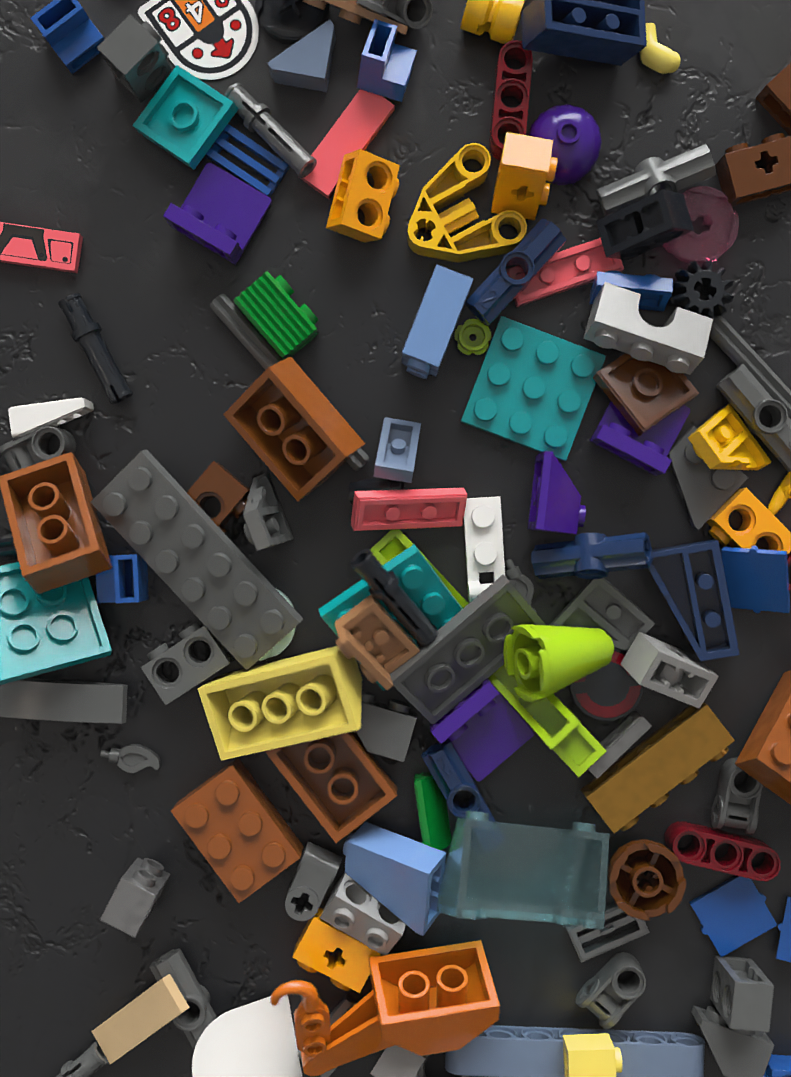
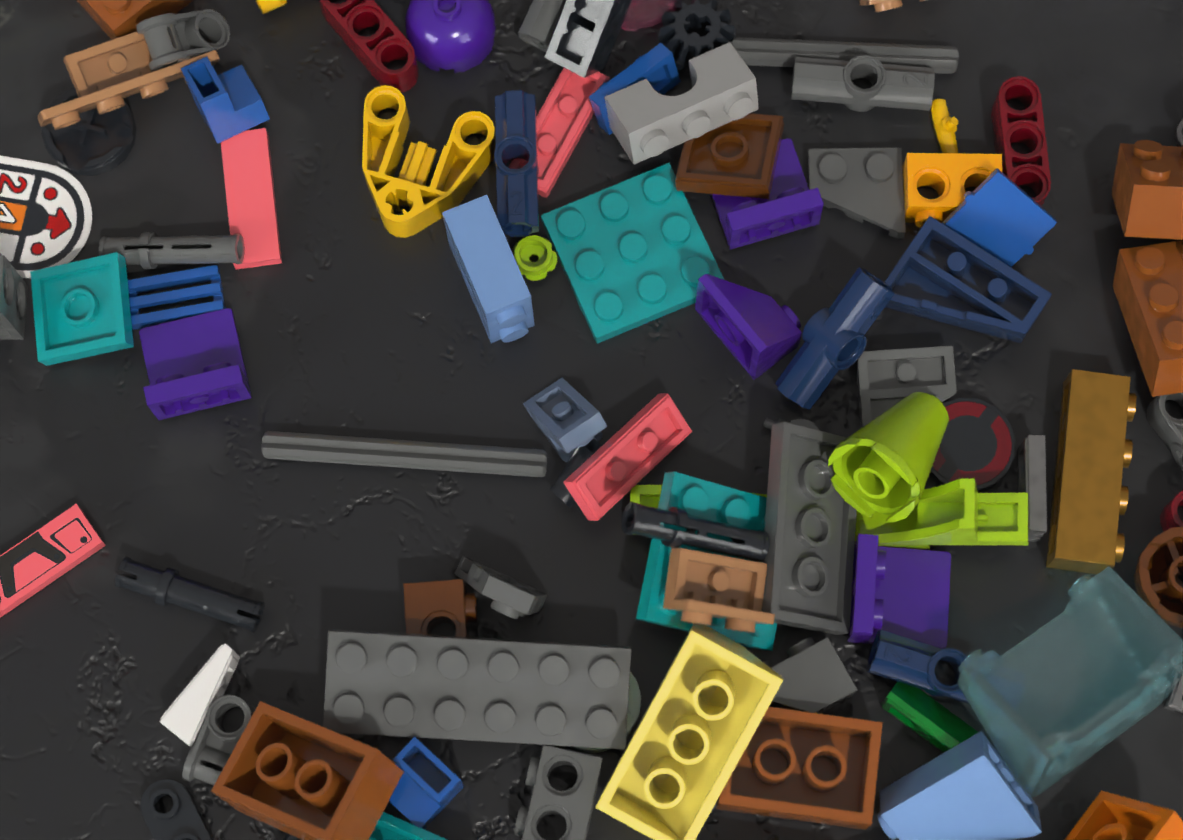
camera: 45 degrees left, 15 degrees down
(276, 315) = (335, 402): green brick -> none
(293, 428) = (450, 482): dark orange brick -> none
(307, 61) = (150, 163): sand blue slope -> none
(355, 193) = (314, 227): light orange brick -> none
(483, 542) = (725, 427): white plate -> none
(523, 175) = (442, 76): light orange brick -> none
(669, 670) = (1007, 371): light grey brick -> none
(728, 443) = (853, 134): yellow wing -> none

